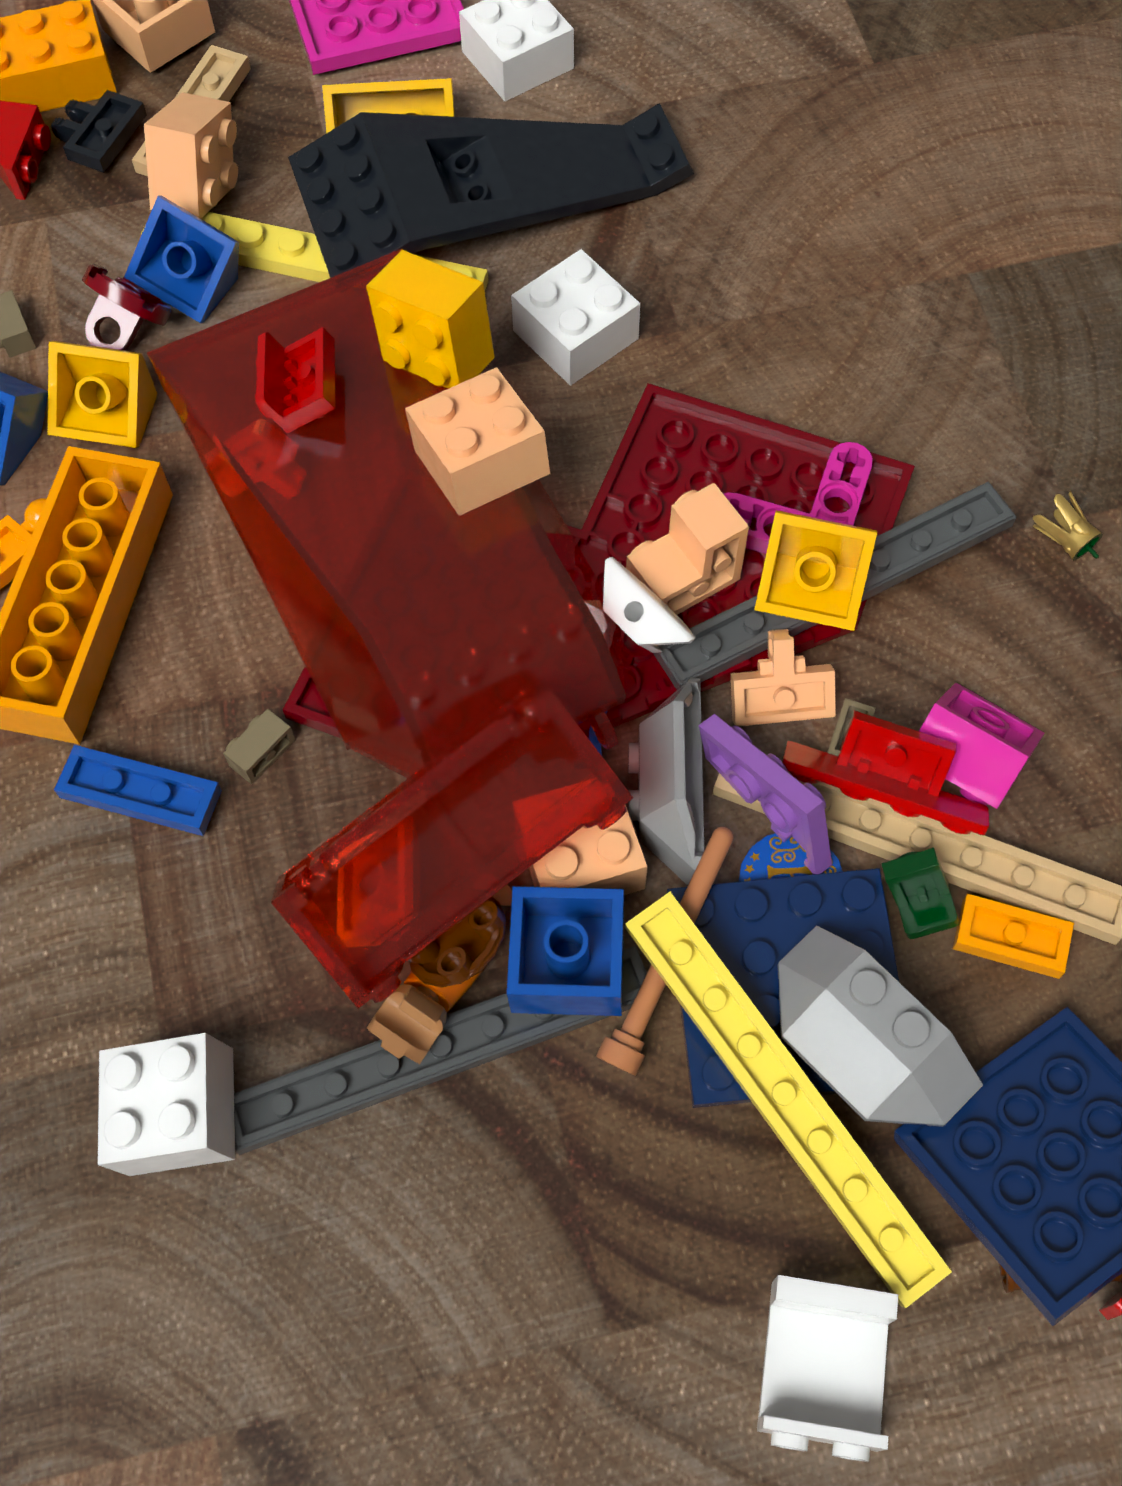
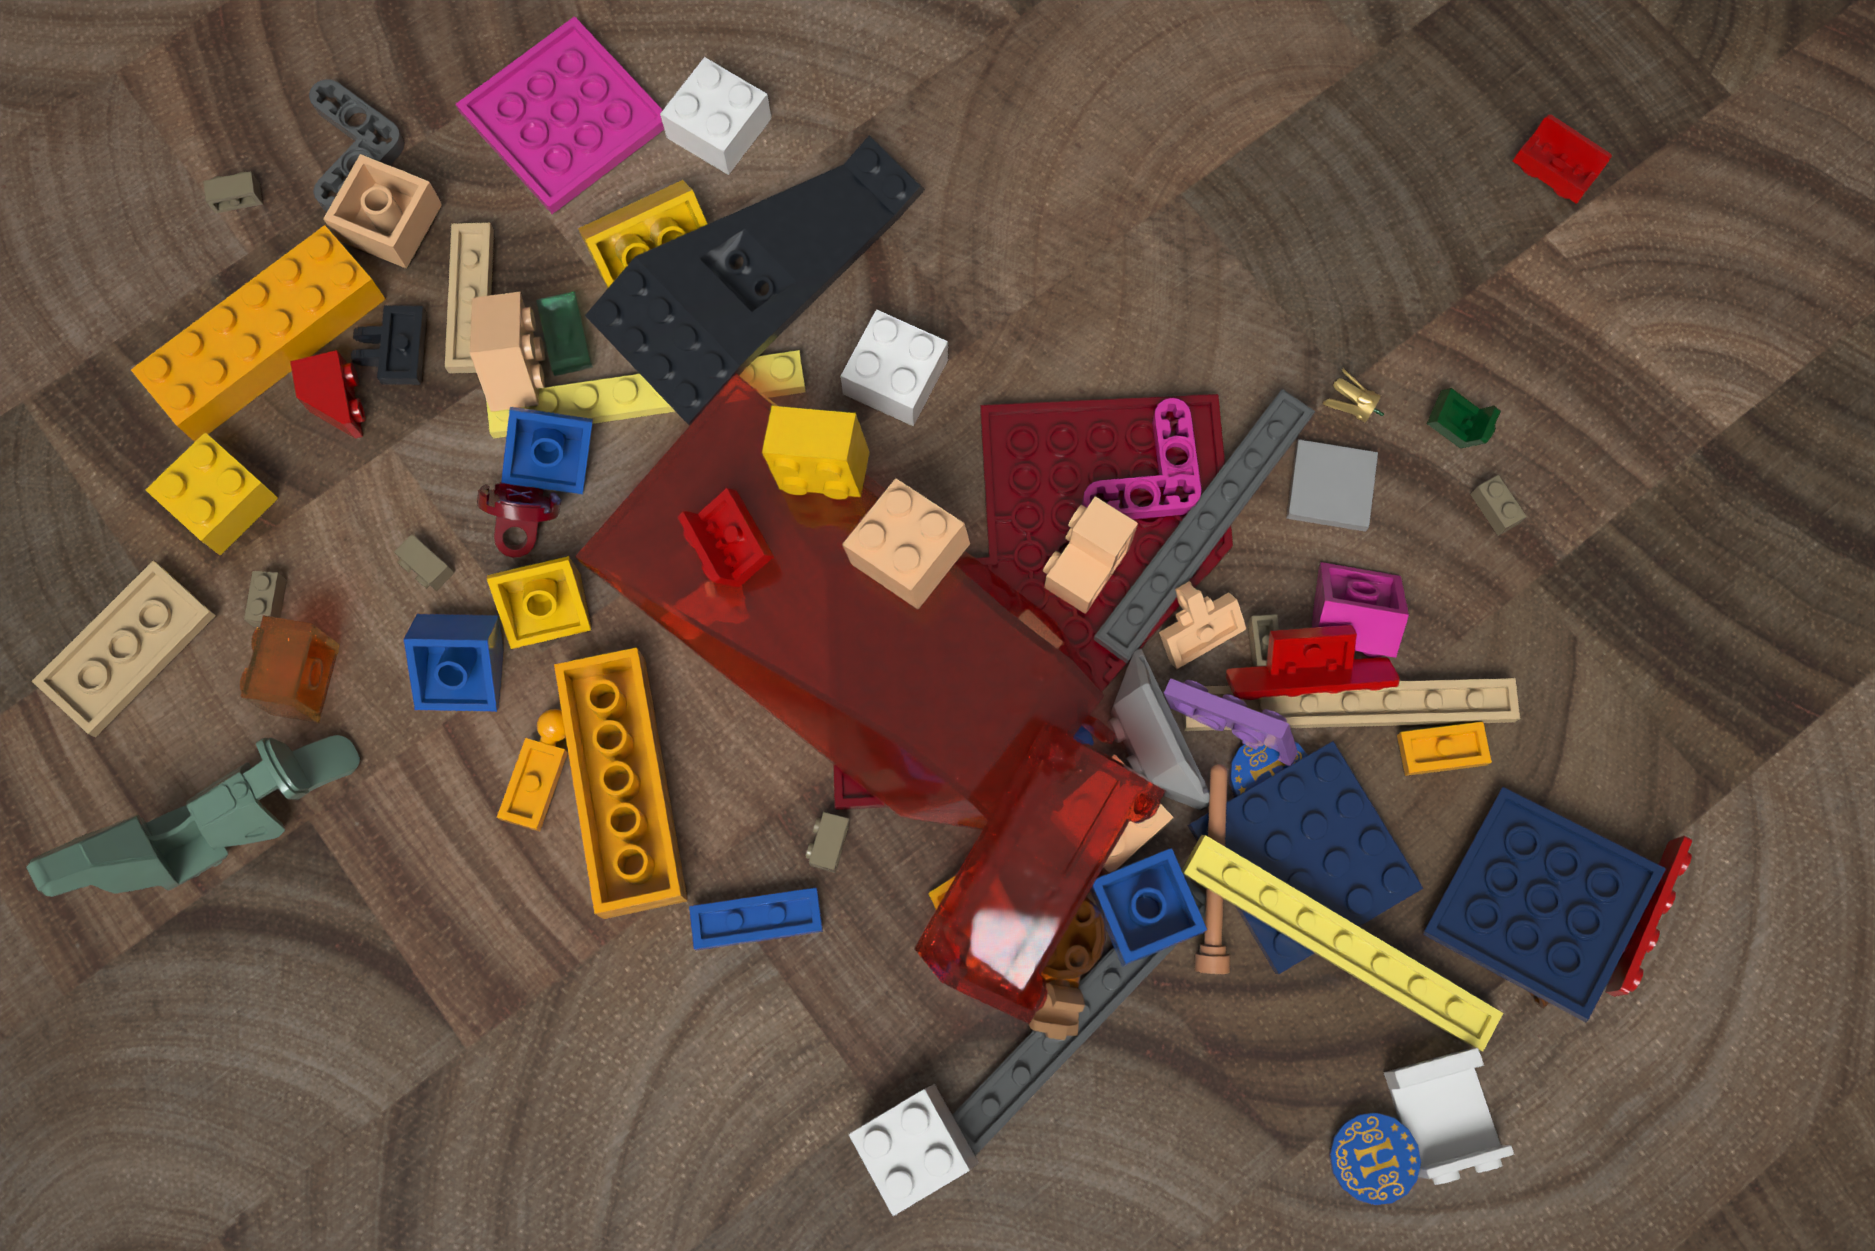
camera: 25 degrees left, 10 degrees up
(263, 175) = (564, 333): none -> clear green plate
(640, 610) = (1084, 621): white piece -> none
(710, 1378) = (1375, 1158): none -> blue tile
(815, 570) = (1192, 530): yellow slope -> none
(870, 1035) = (1379, 873): light grey wedge -> none
(921, 893) = (1370, 747): dark green bracket -> none
(1005, 608) = (1332, 485): none -> light grey tile

